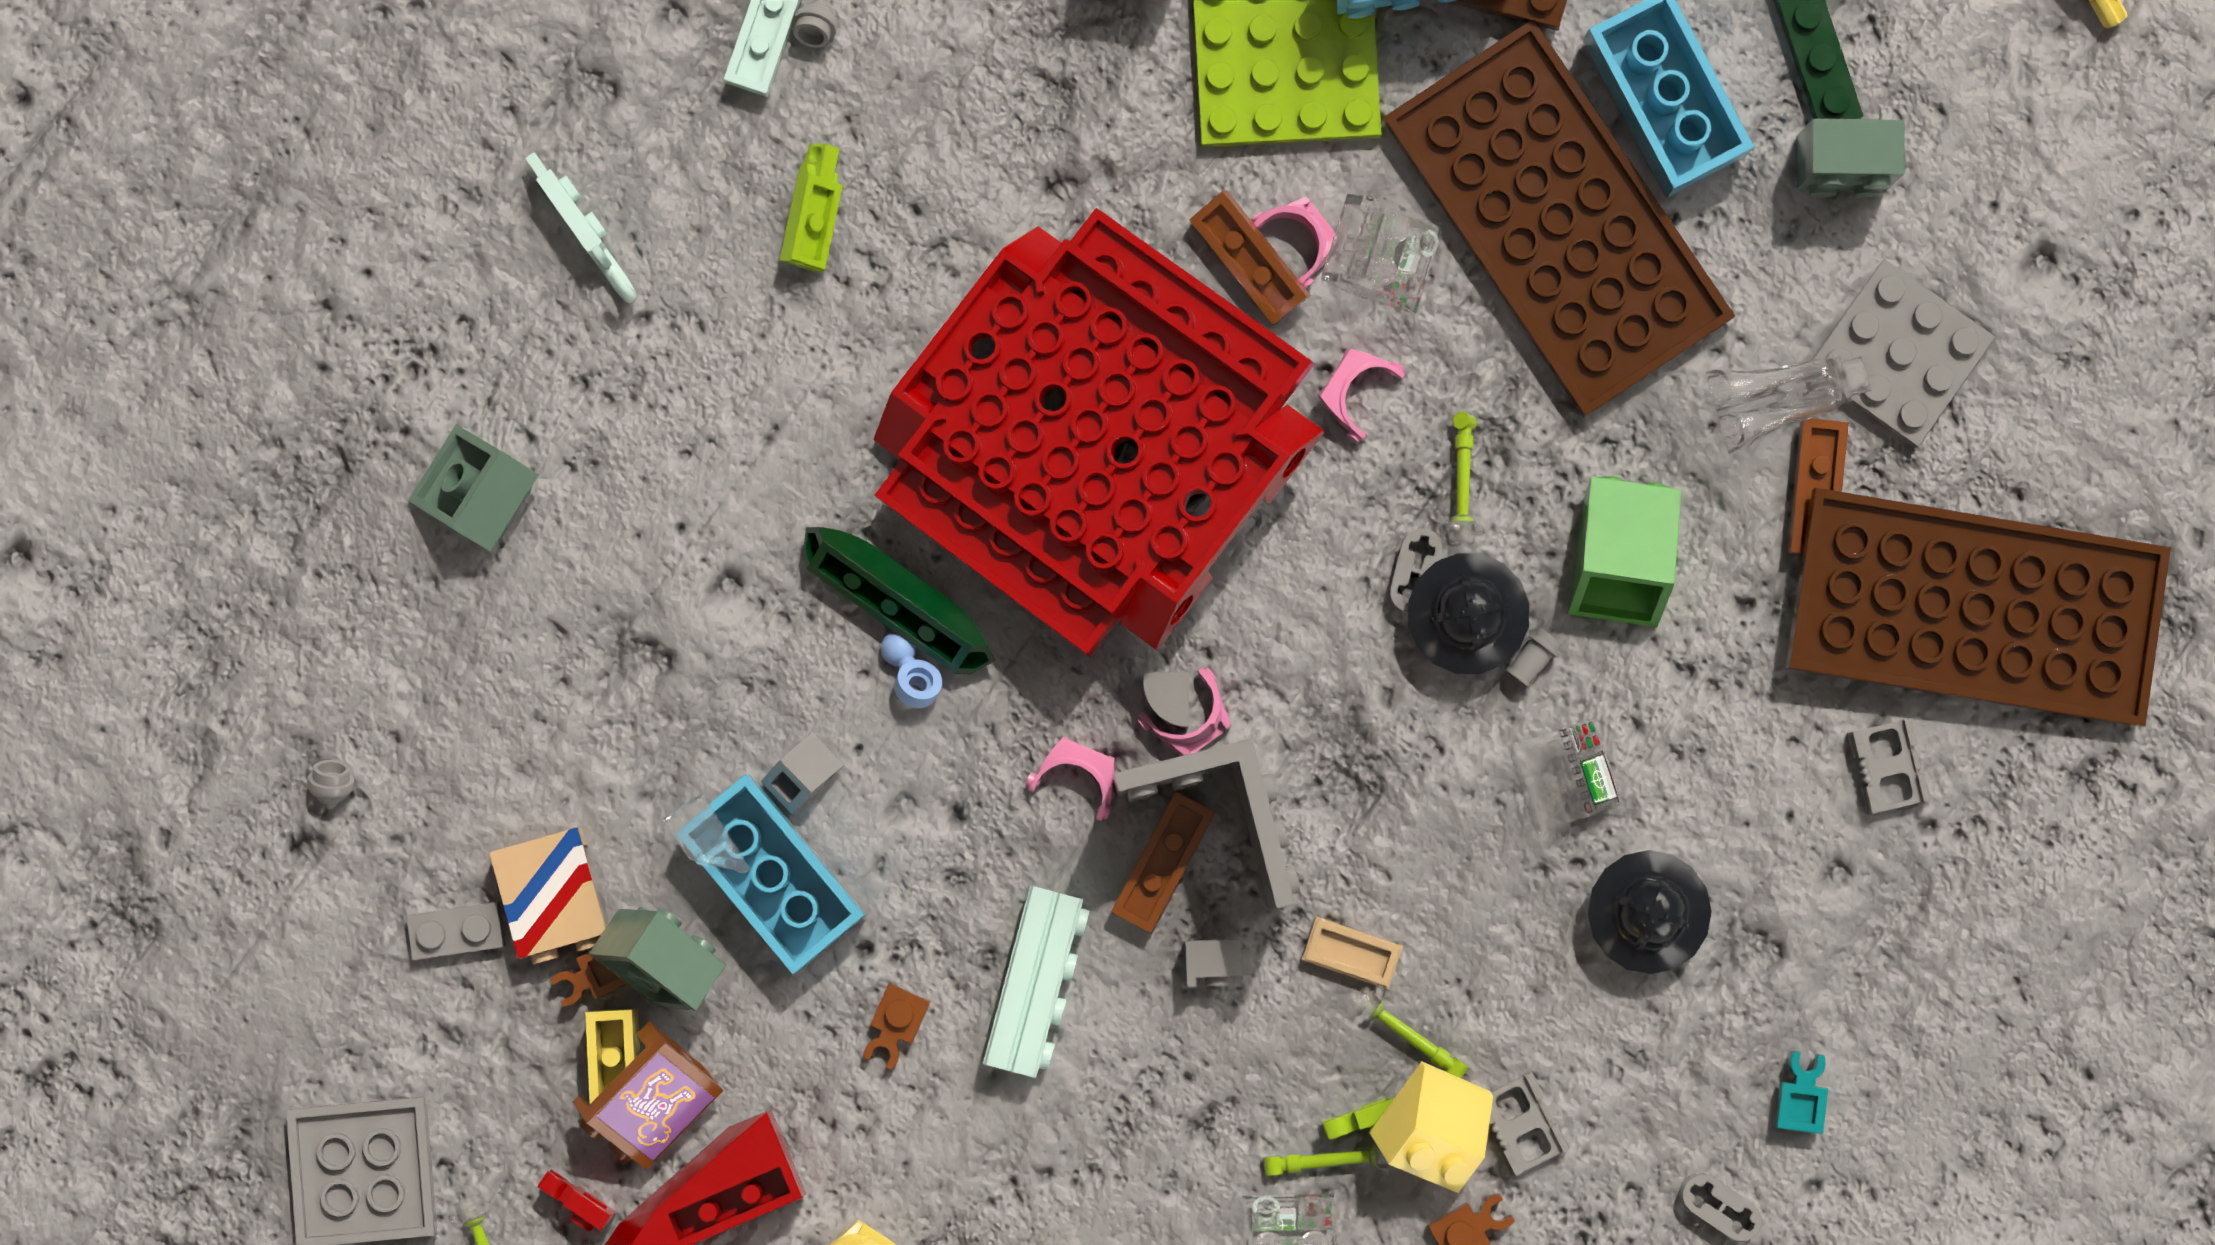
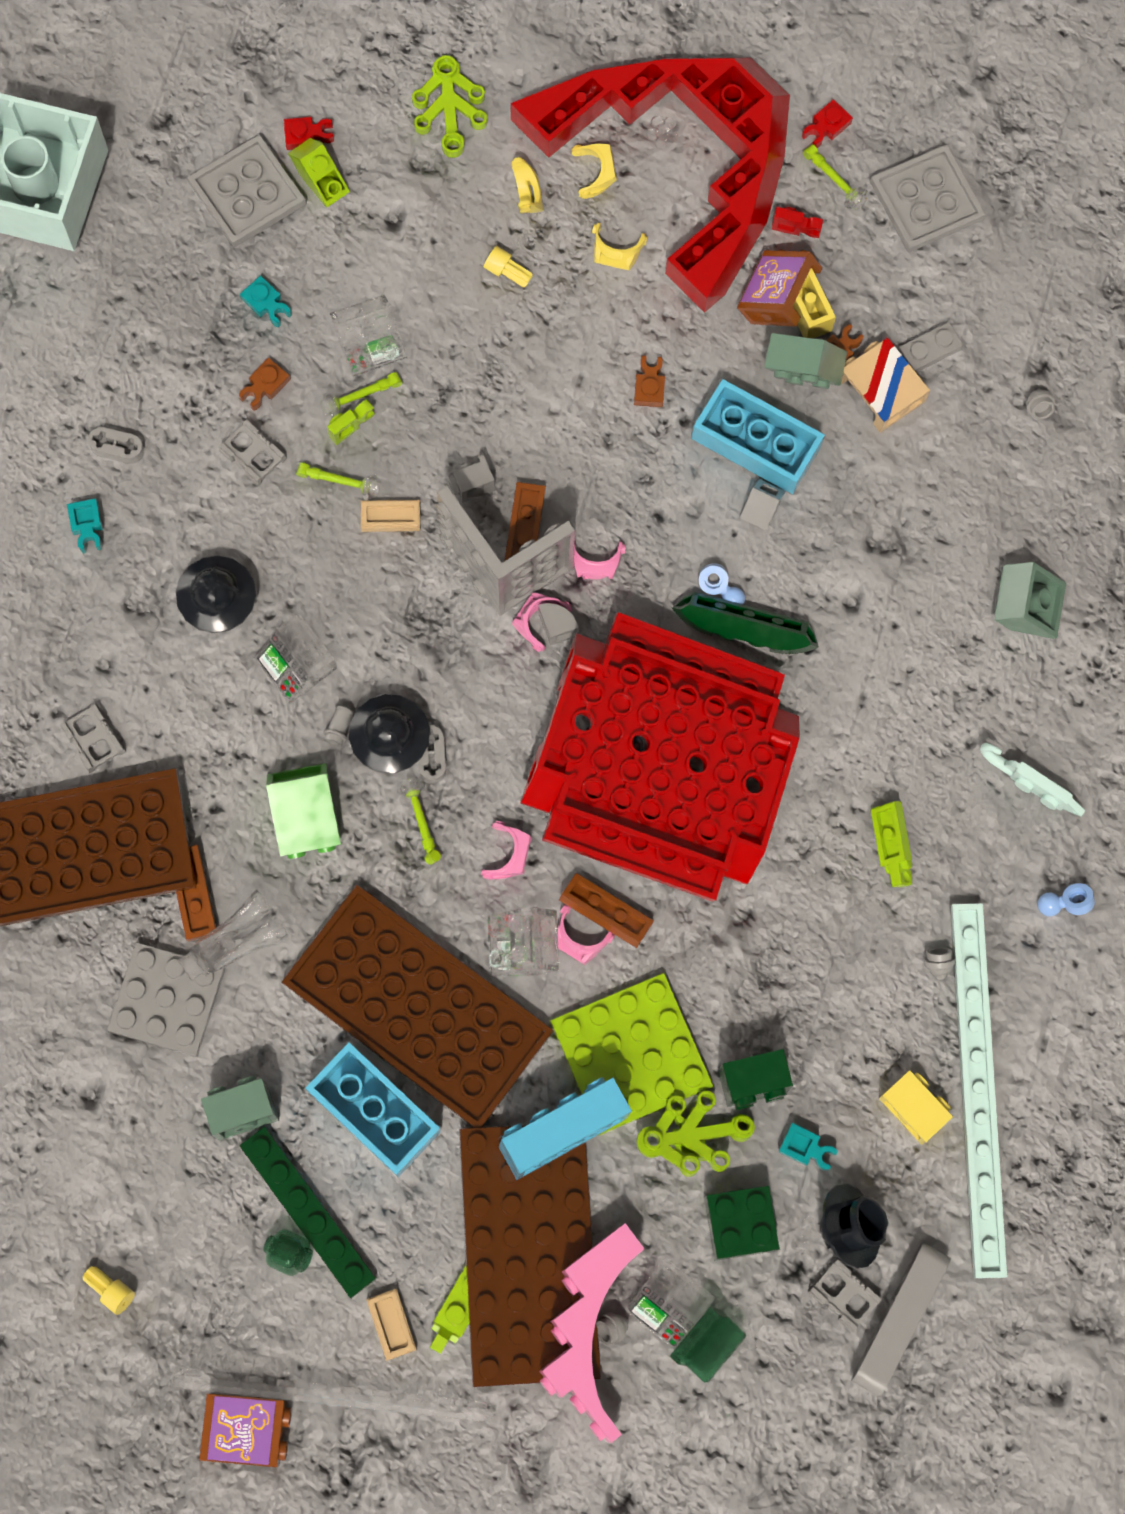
camera: 160 degrees right, 10 degrees down
(626, 49) = (1051, 904): none -> light blue plate
(704, 836) = (806, 436): clear slope -> none
(1033, 982) = (576, 432): light aqua brick -> none
(1436, 1127) = (304, 422): light yellow slope -> none

